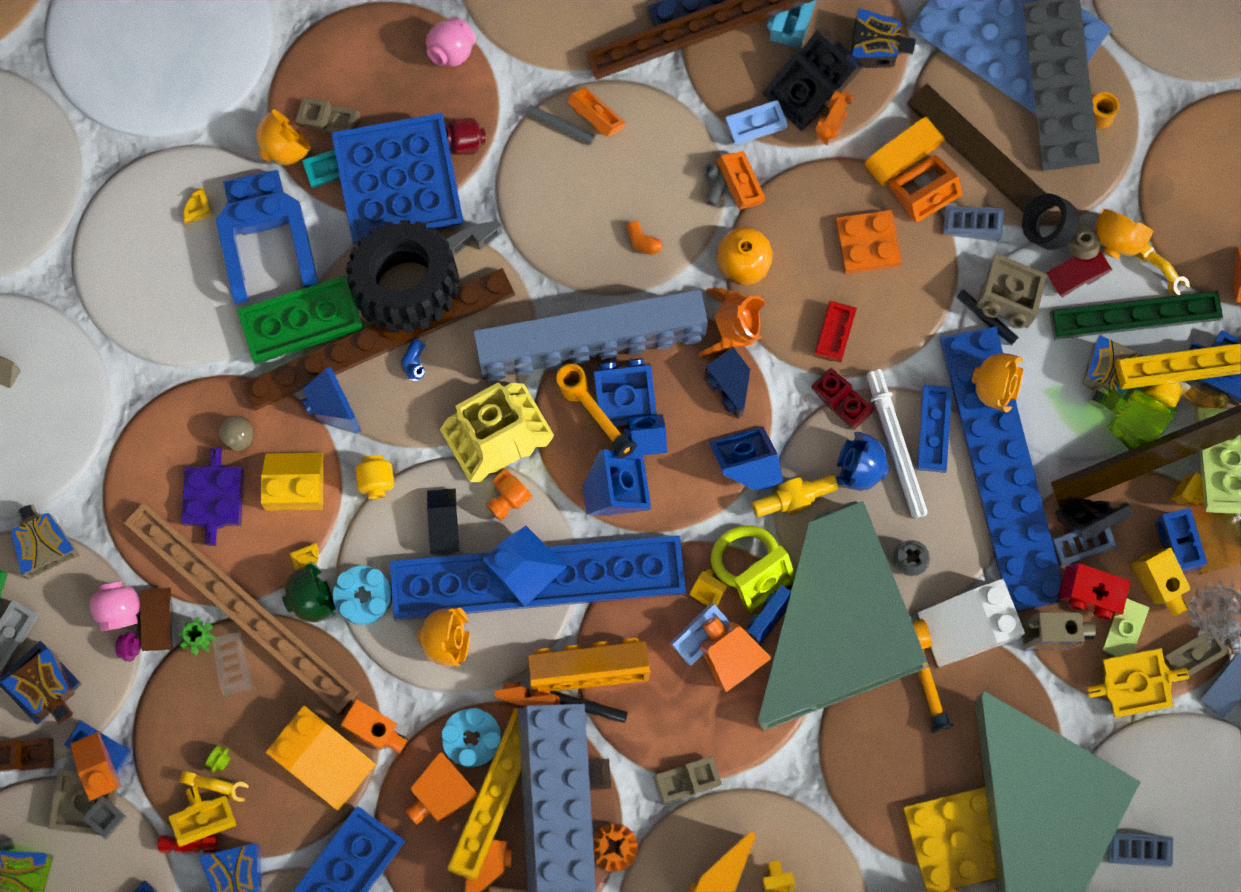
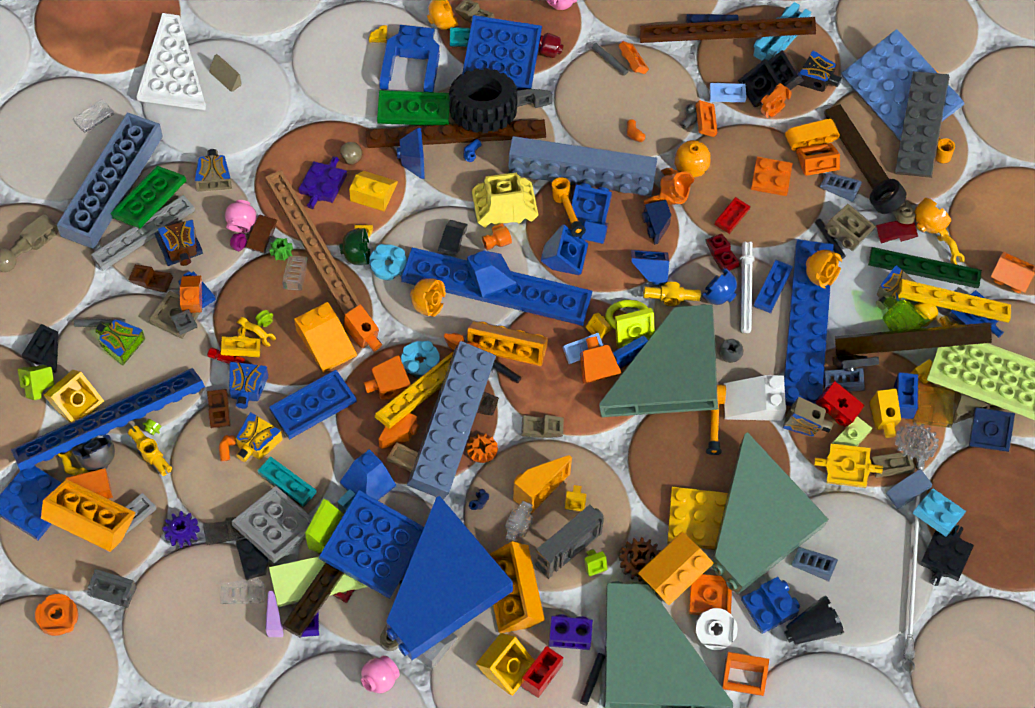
camera: 20 degrees right, 15 degrees down
(374, 476) = (422, 200): yellow head -> none

